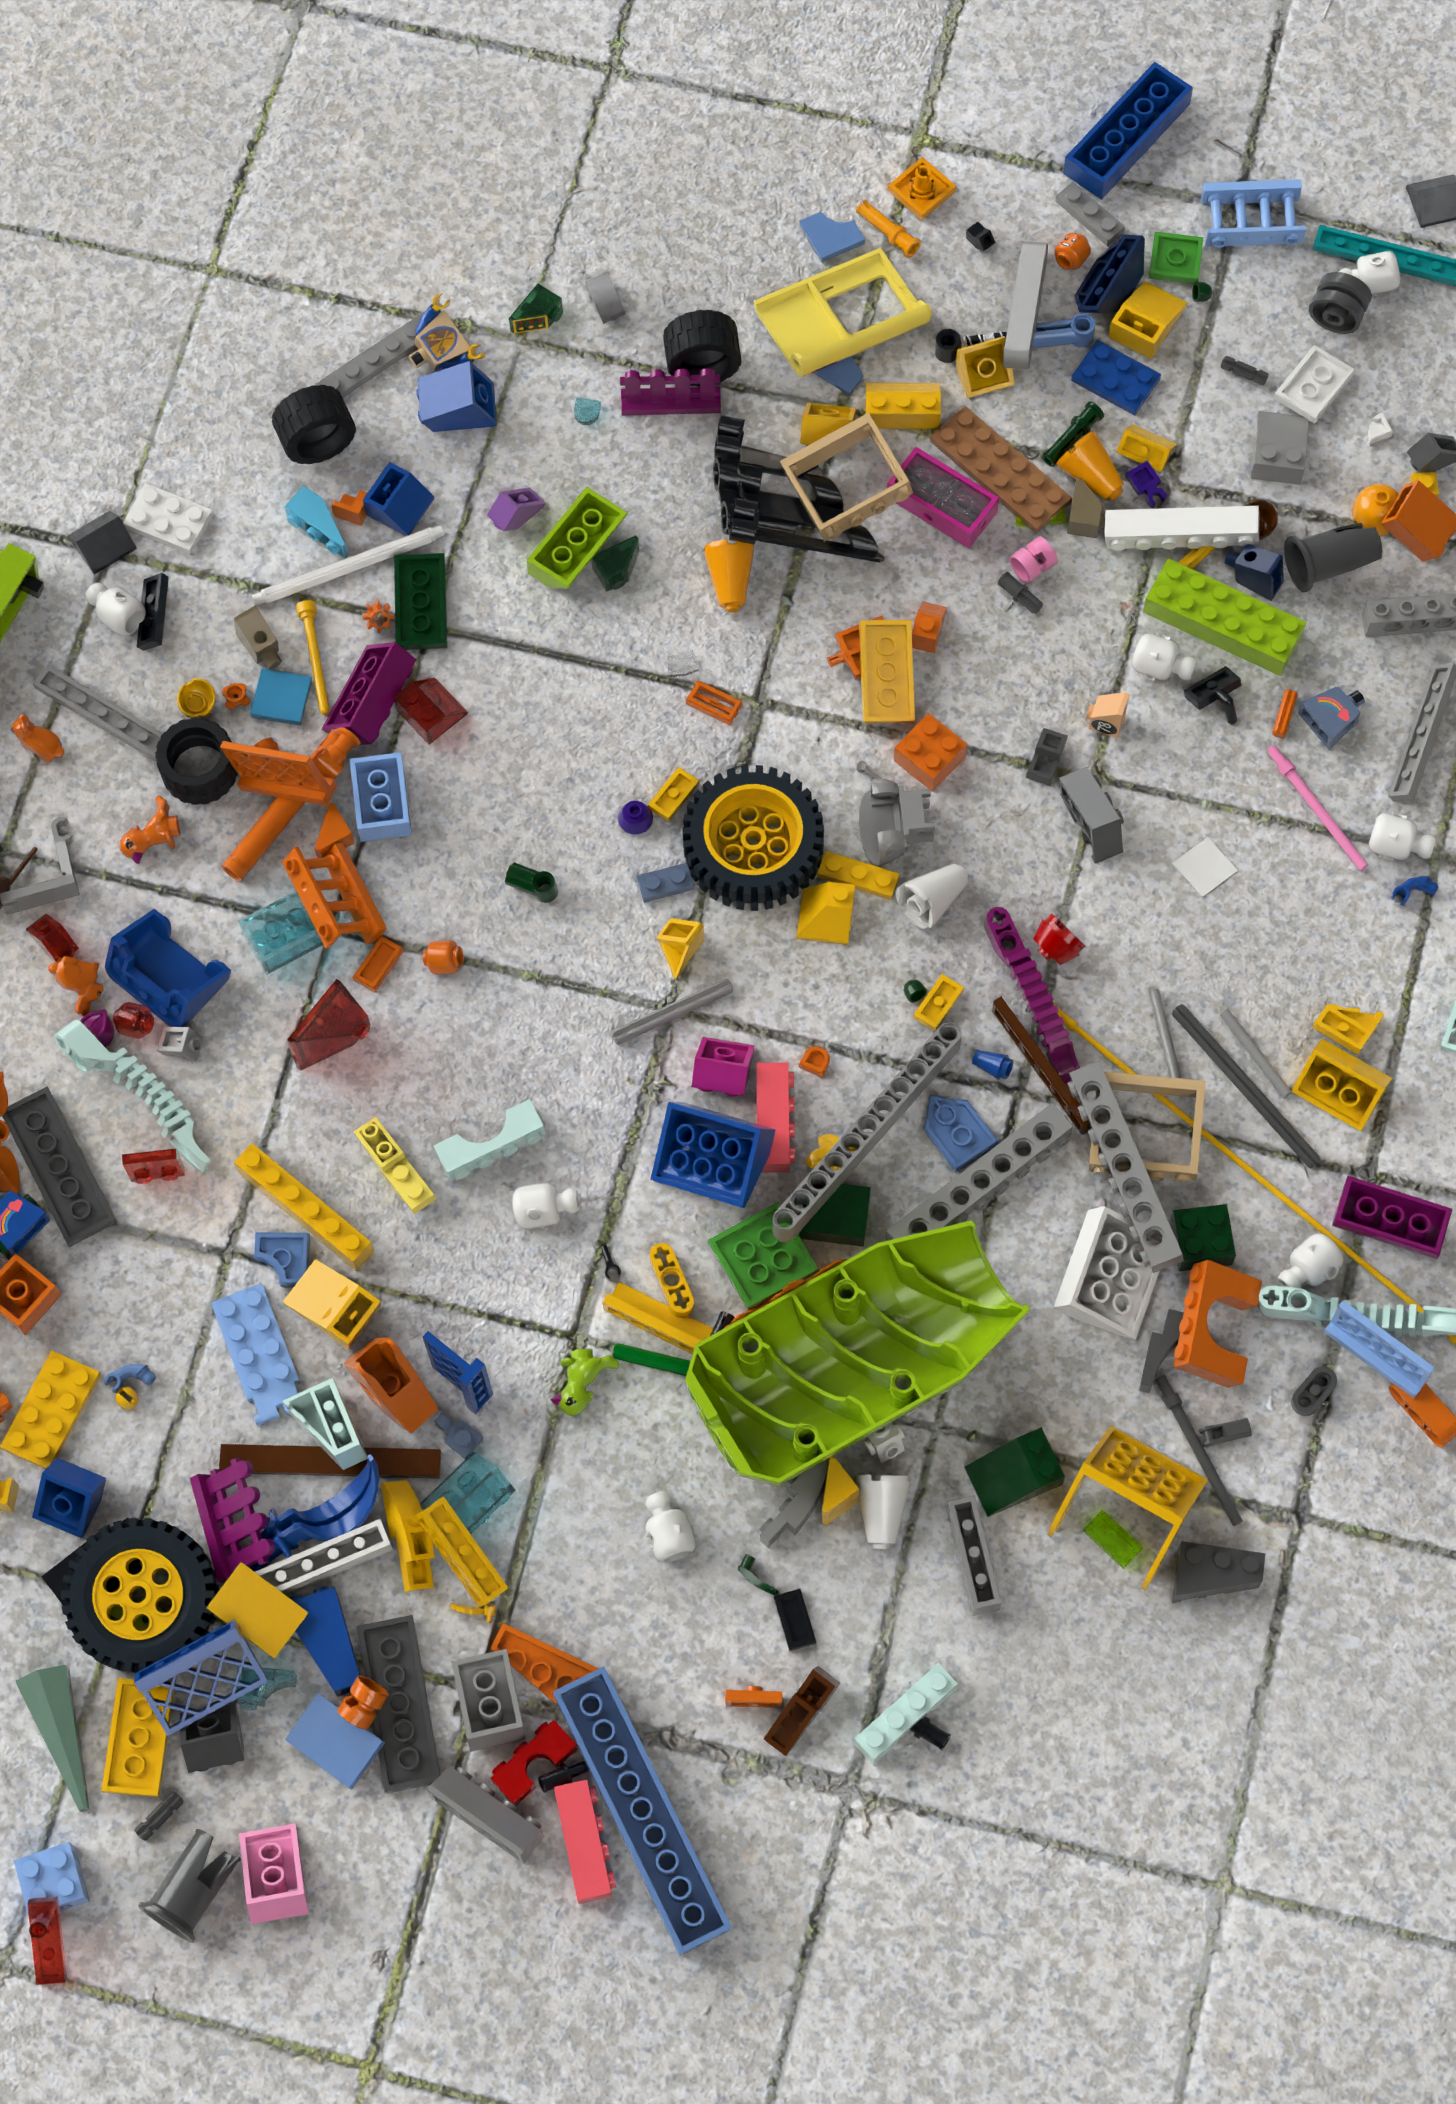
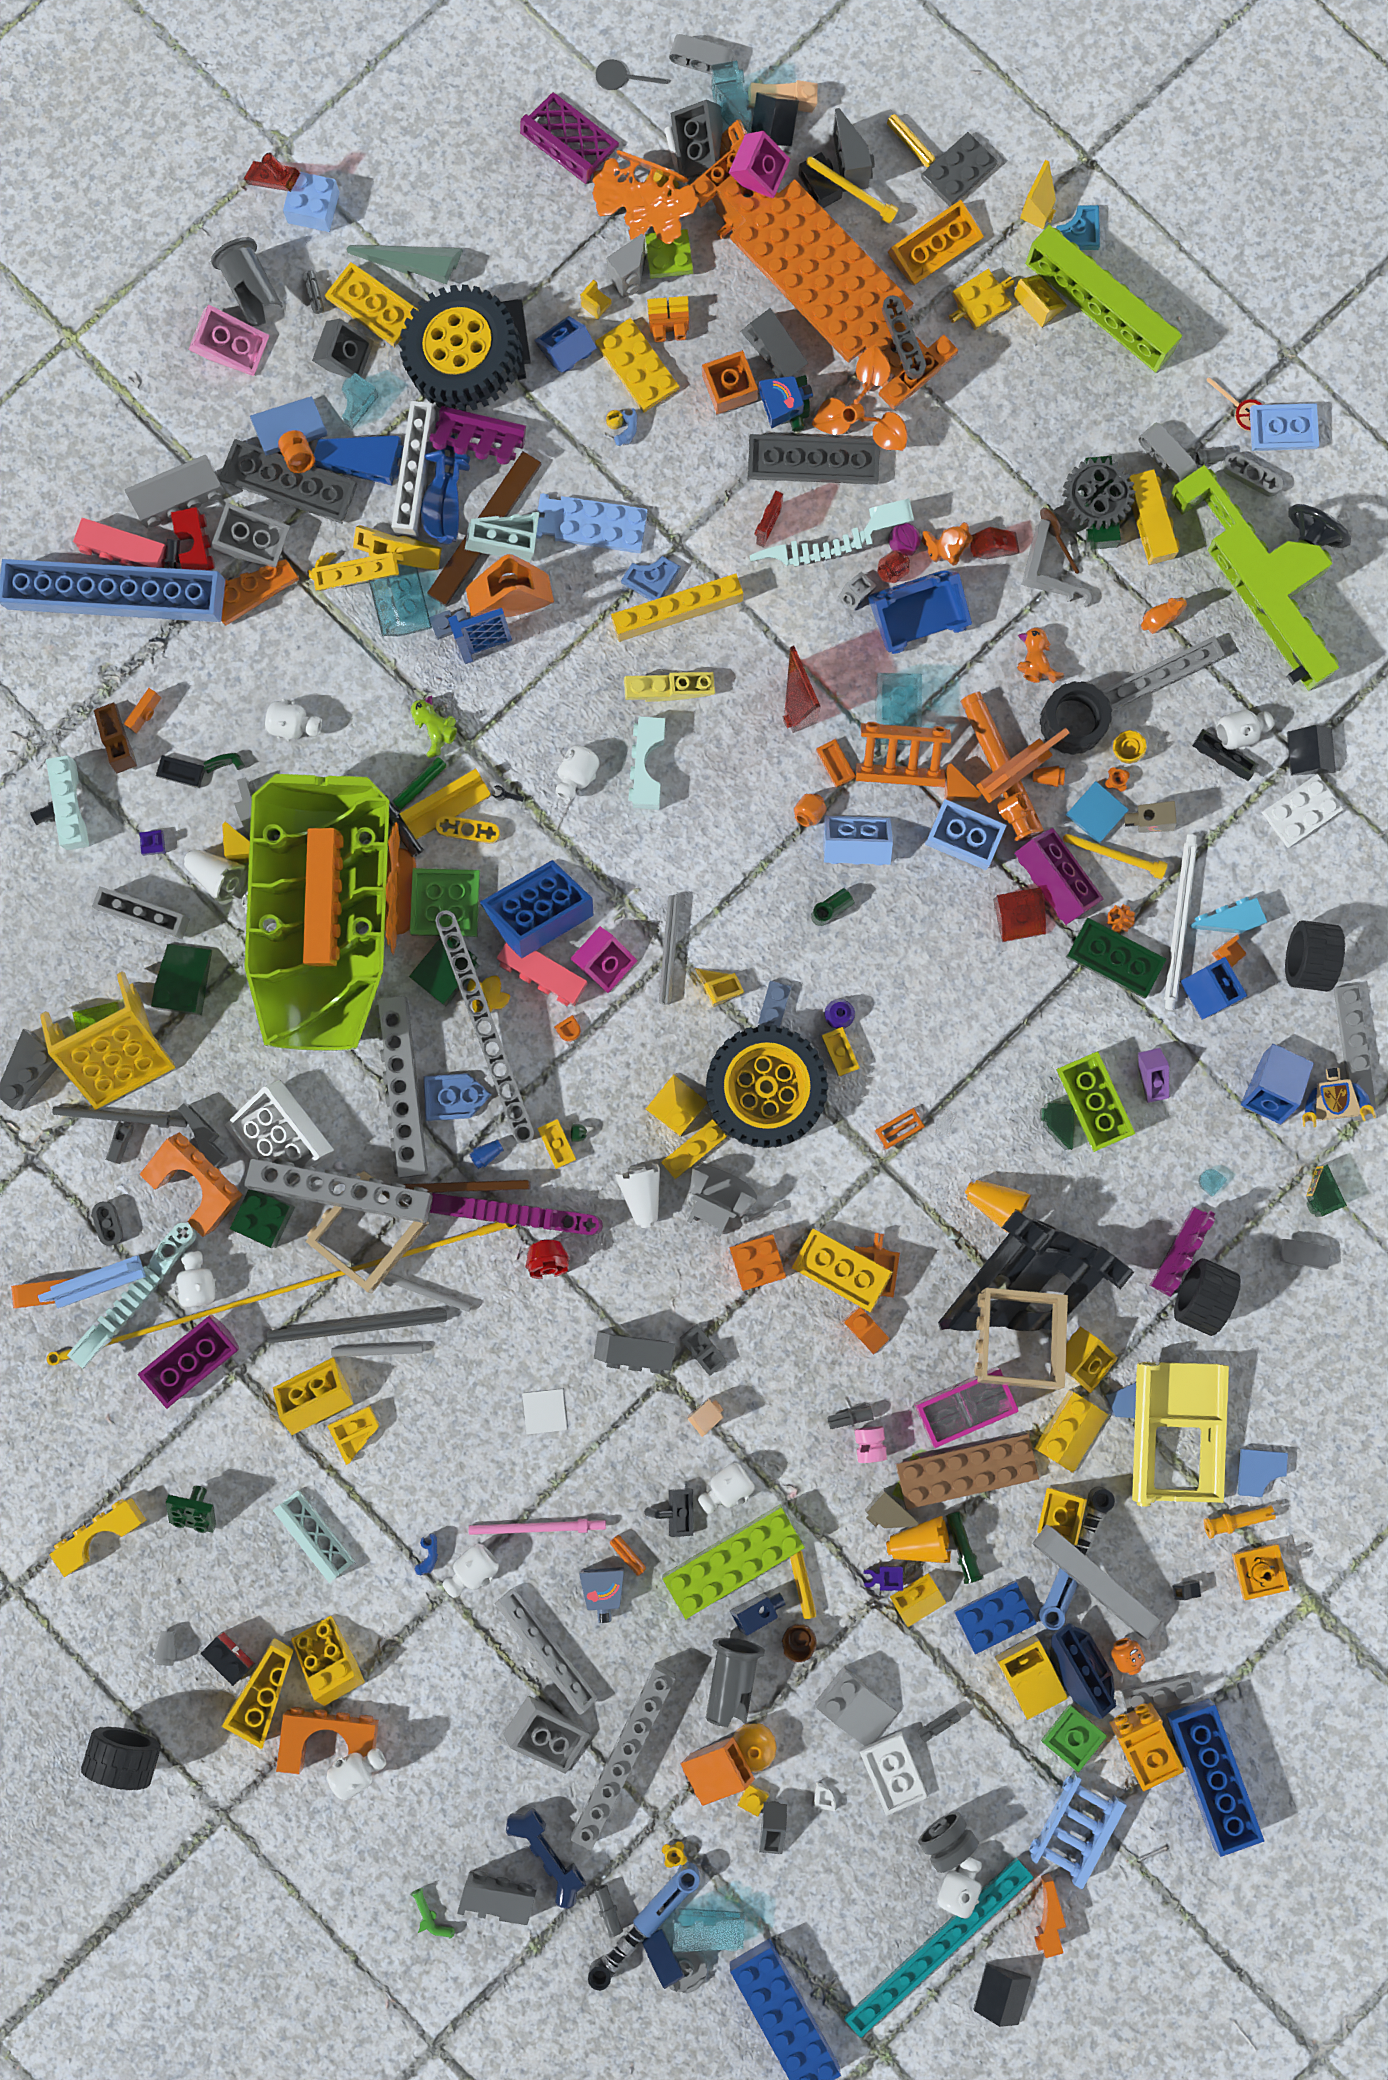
camera: 120 degrees right, 15 degrees up
(189, 1656) = (390, 352): blue fence -> none
(259, 1608) = (399, 413): yellow tile -> none
(332, 1303) = (591, 586): yellow slope -> none
(446, 895) = (857, 840): none -> light blue slope
(839, 1357) = (322, 897): none -> orange brick
(890, 1600) = (152, 842): none -> dark purple tile
(1139, 196) = (1146, 1746): none -> light orange bracket
(1182, 527) = (825, 1578): white brick -> none
(1201, 292) = (1030, 1738): dark green hinge -> none
(1344, 193) = (1052, 1920): none -> orange slope

